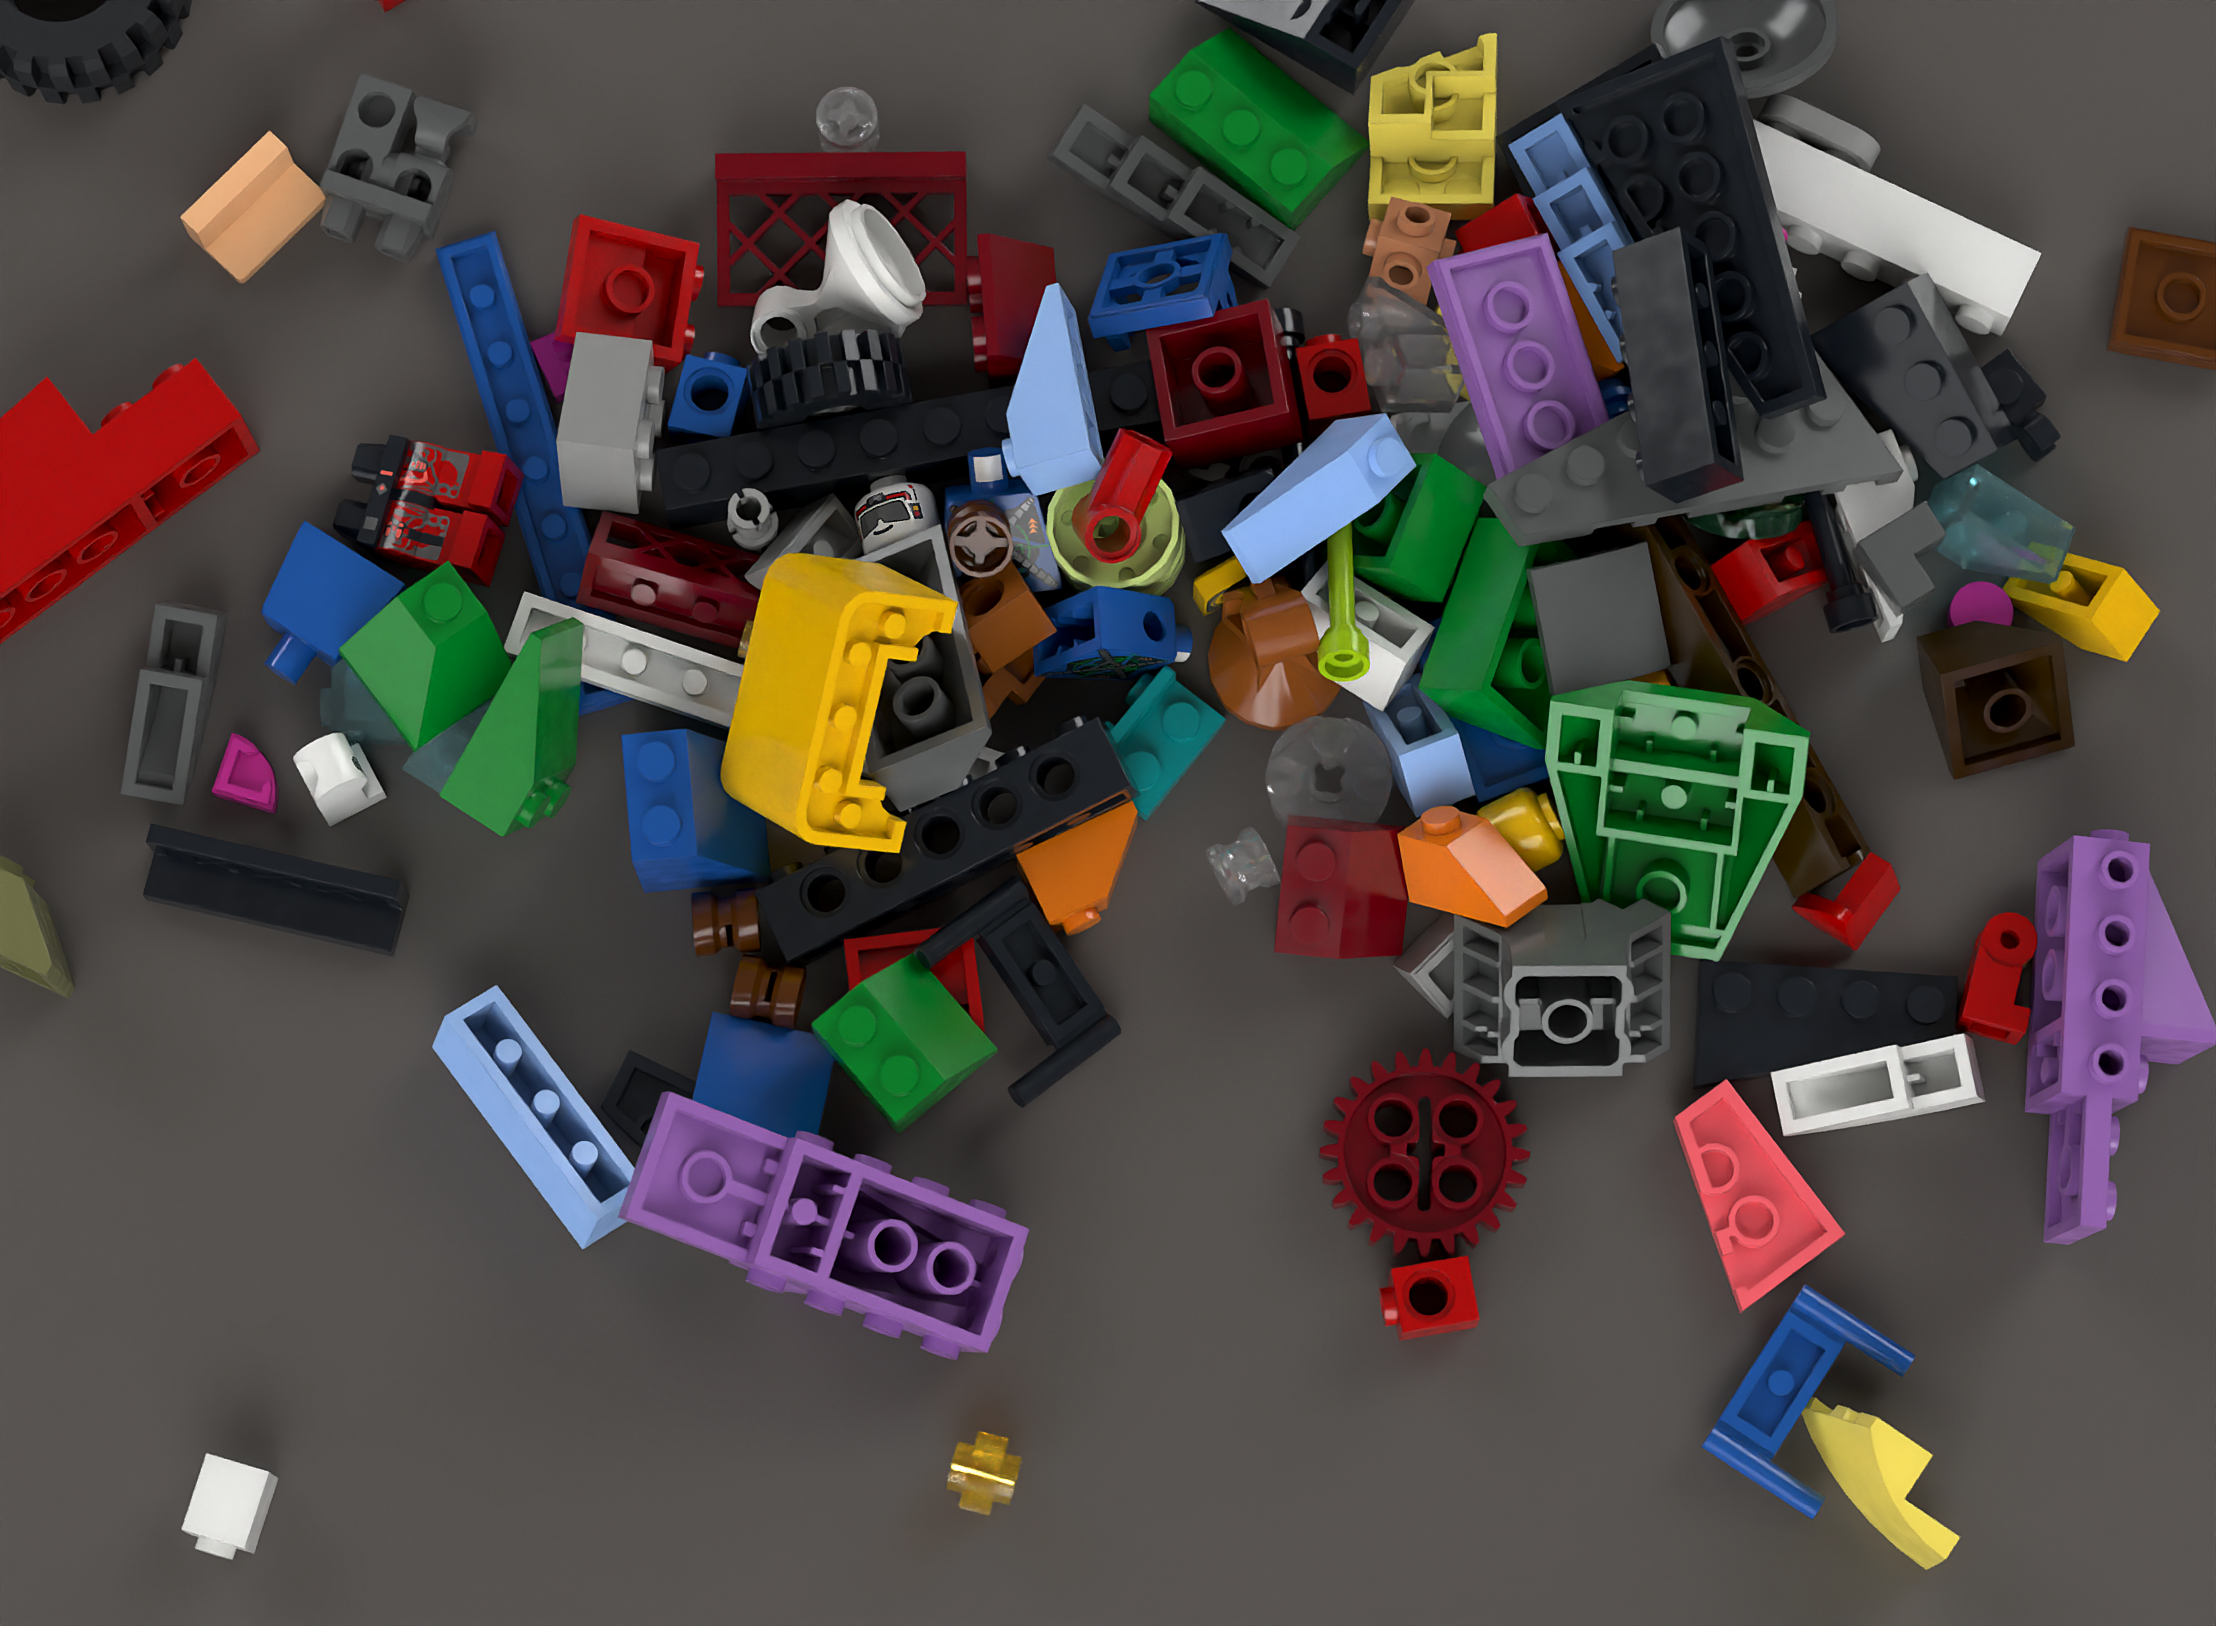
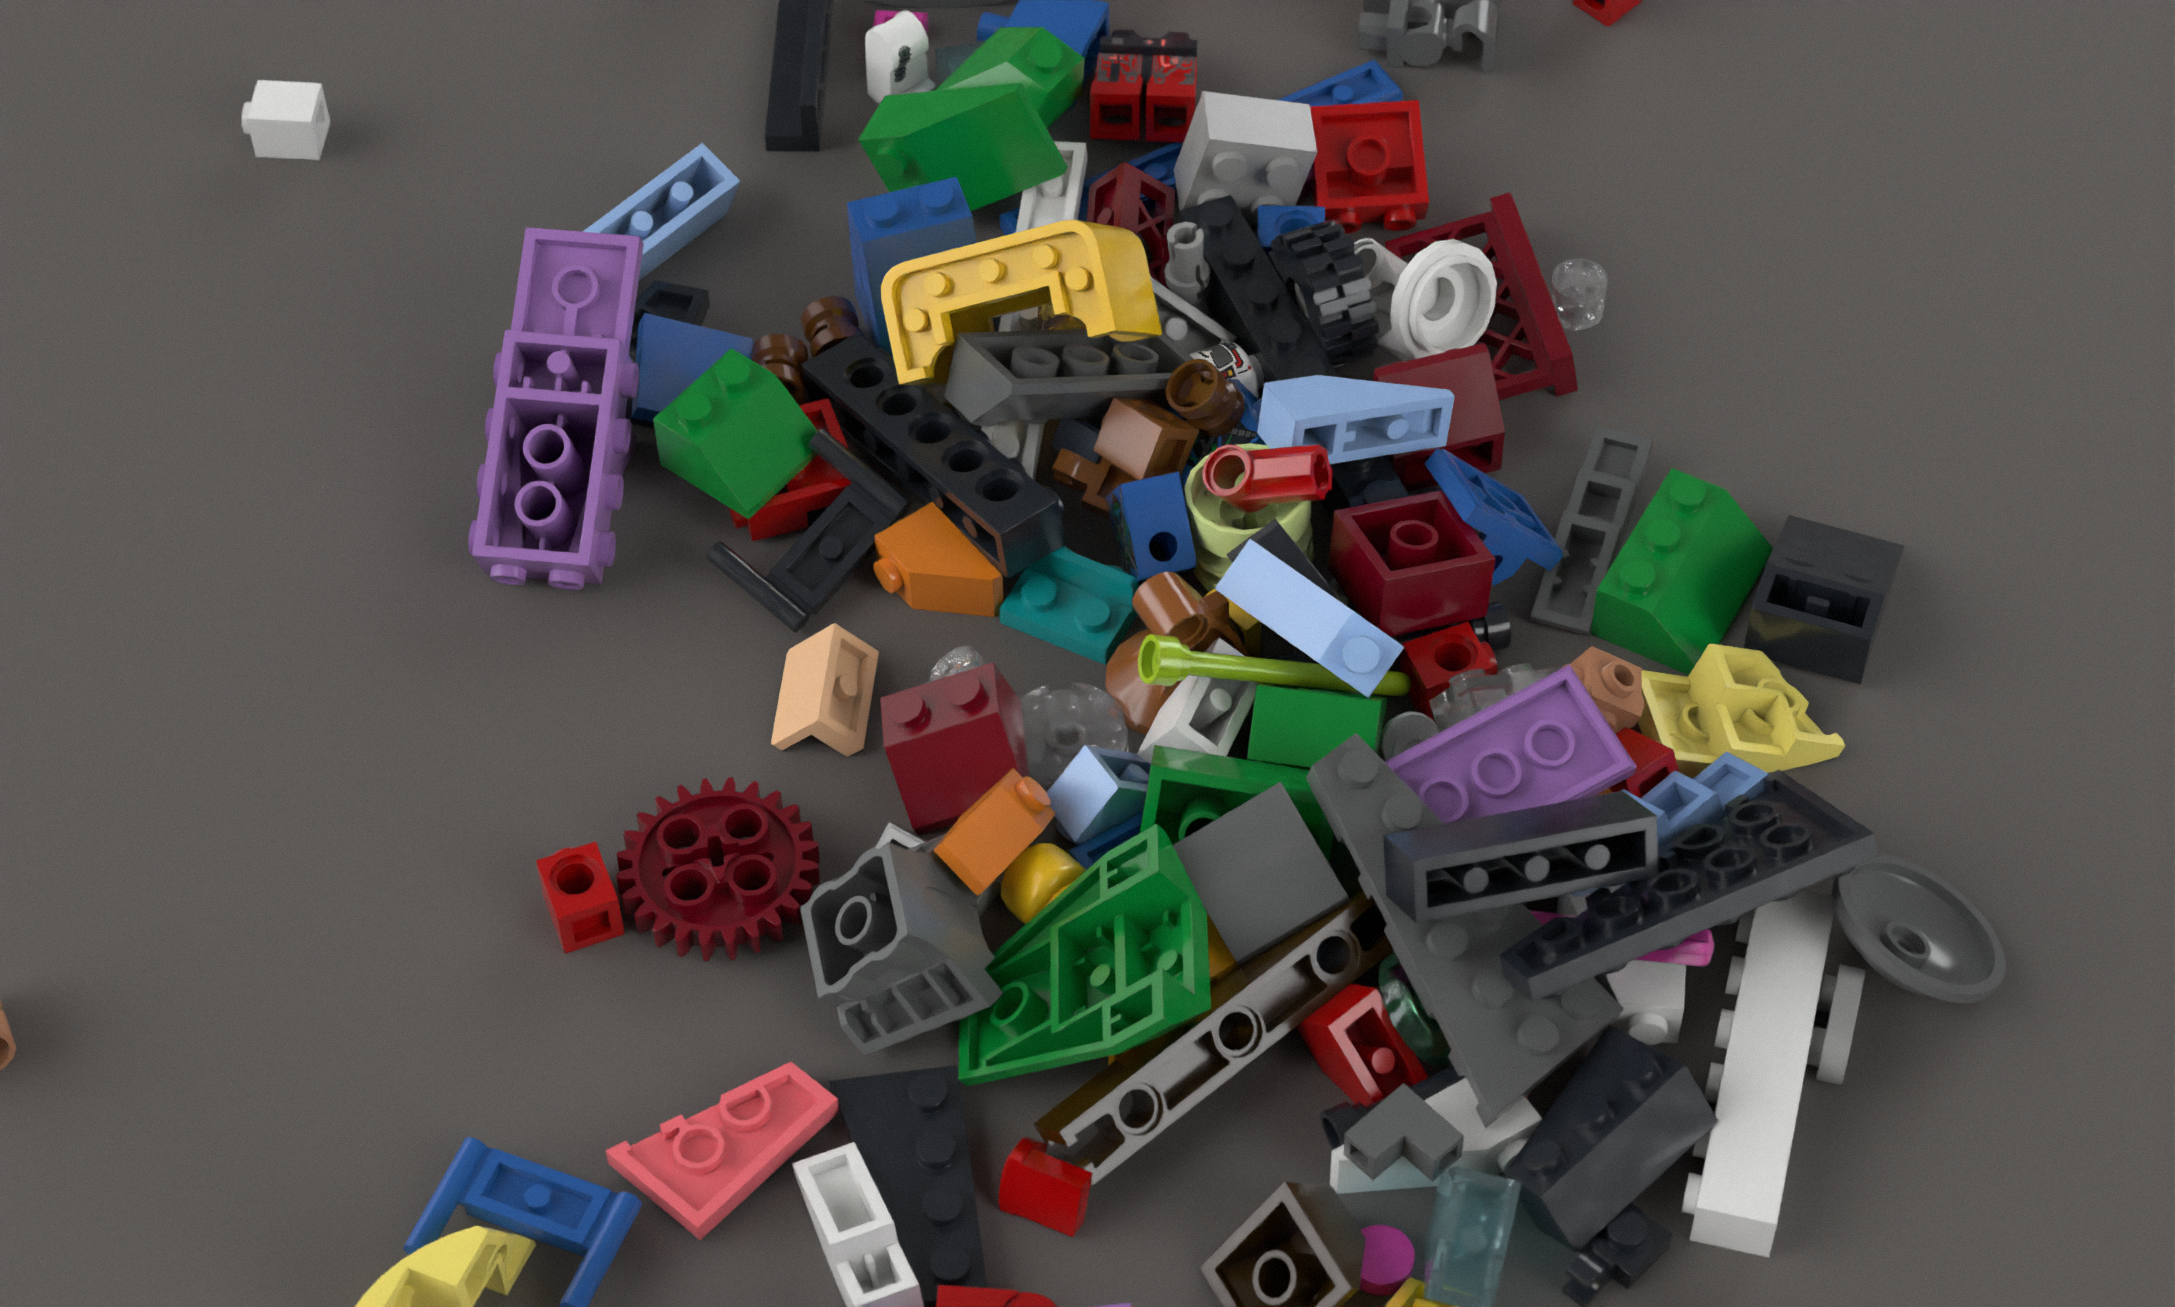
camera: 80 degrees right, 25 degrees down
(984, 1473) = (370, 589): clear yellow gear -> none
(1216, 1015) = (826, 691): none -> light nougat panel

